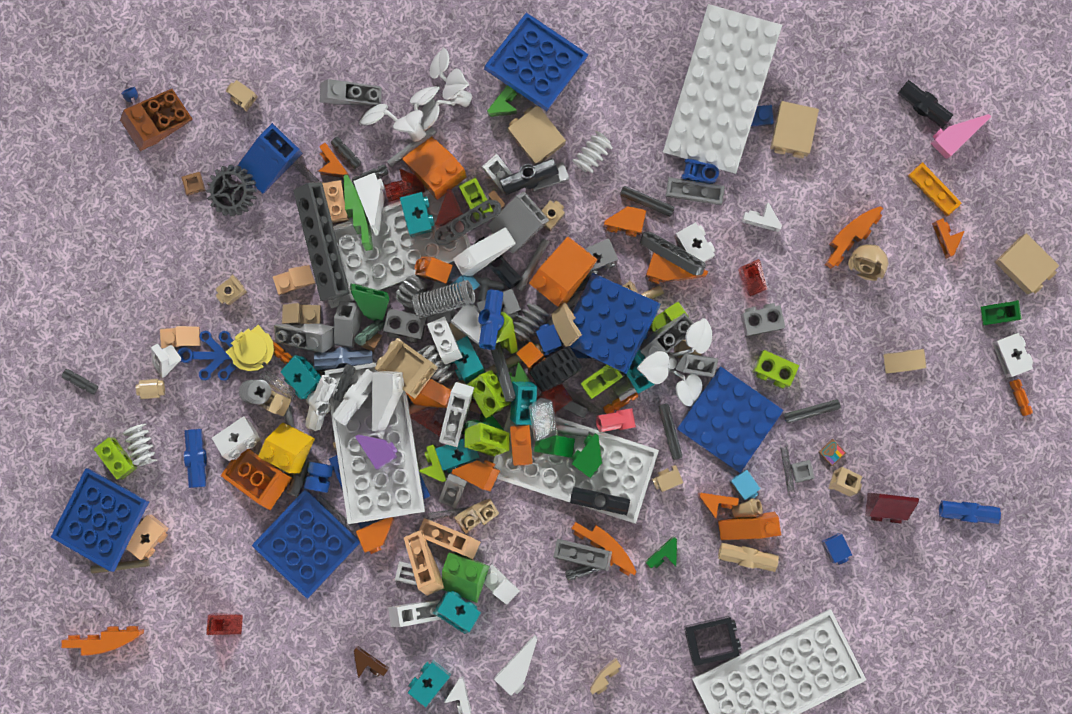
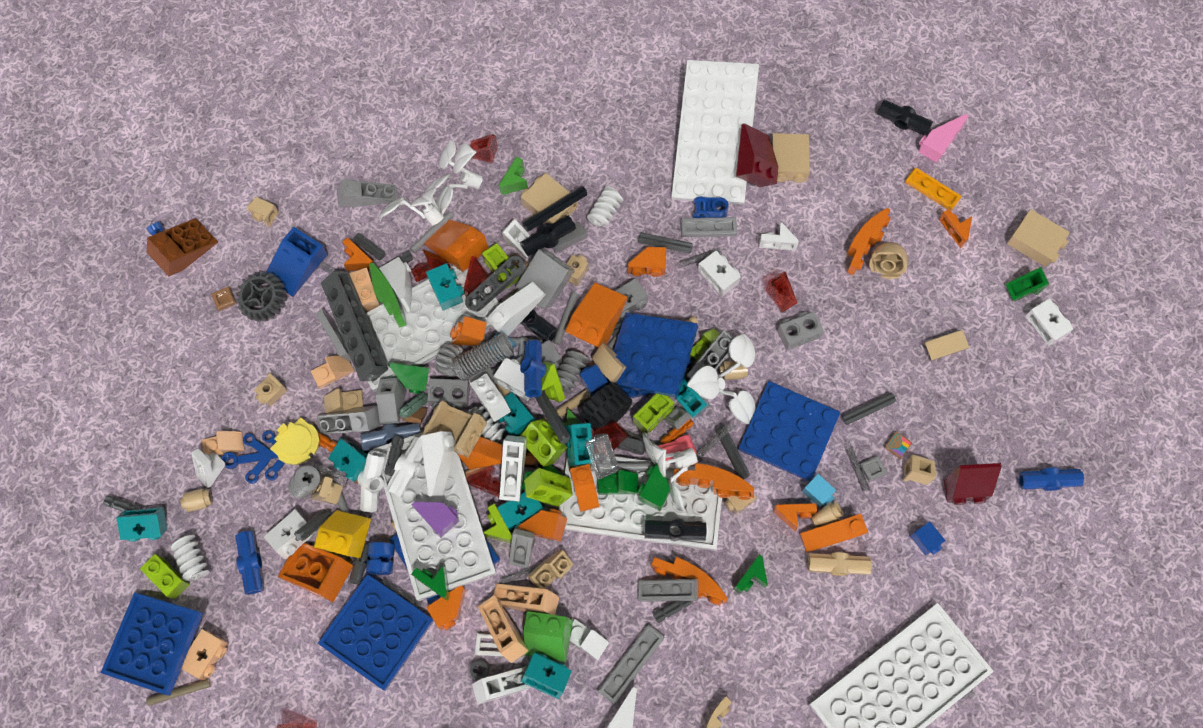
camera: 10 degrees left, 15 degrees down
(97, 404) = (141, 524): none -> teal brick
(251, 444) = (312, 526): none -> dark grey axle
(299, 242) = (333, 333): none -> light grey tile
(369, 516) = (438, 584): none -> green slope
(400, 590) = (483, 665): none -> dark grey bush
(474, 62) = (485, 148): none -> clear red slope
(530, 355) = (578, 399): orange slope -> none
(536, 61) = (537, 137): blue plate -> none
(536, 614) = (631, 664): none -> light grey tile
(540, 148) = (555, 208): none -> black axle
(618, 438) = (681, 459): none -> white plant
(654, 418) = (708, 447): none -> light grey piece
(654, 464) = (722, 481): none -> orange slope
(665, 271) = (700, 299): orange slope -> none
(672, 253) = (700, 281): dark grey beam -> none
(680, 220) = (702, 259): none -> light grey piece
(692, 644) = (803, 668): black window -> none
(697, 365) = (746, 380): light grey slope -> none
(758, 127) = (756, 158): none -> dark red slope
(777, 363) = (823, 368): lime brick -> none
(1021, 397) = (1068, 360): orange axle -> none

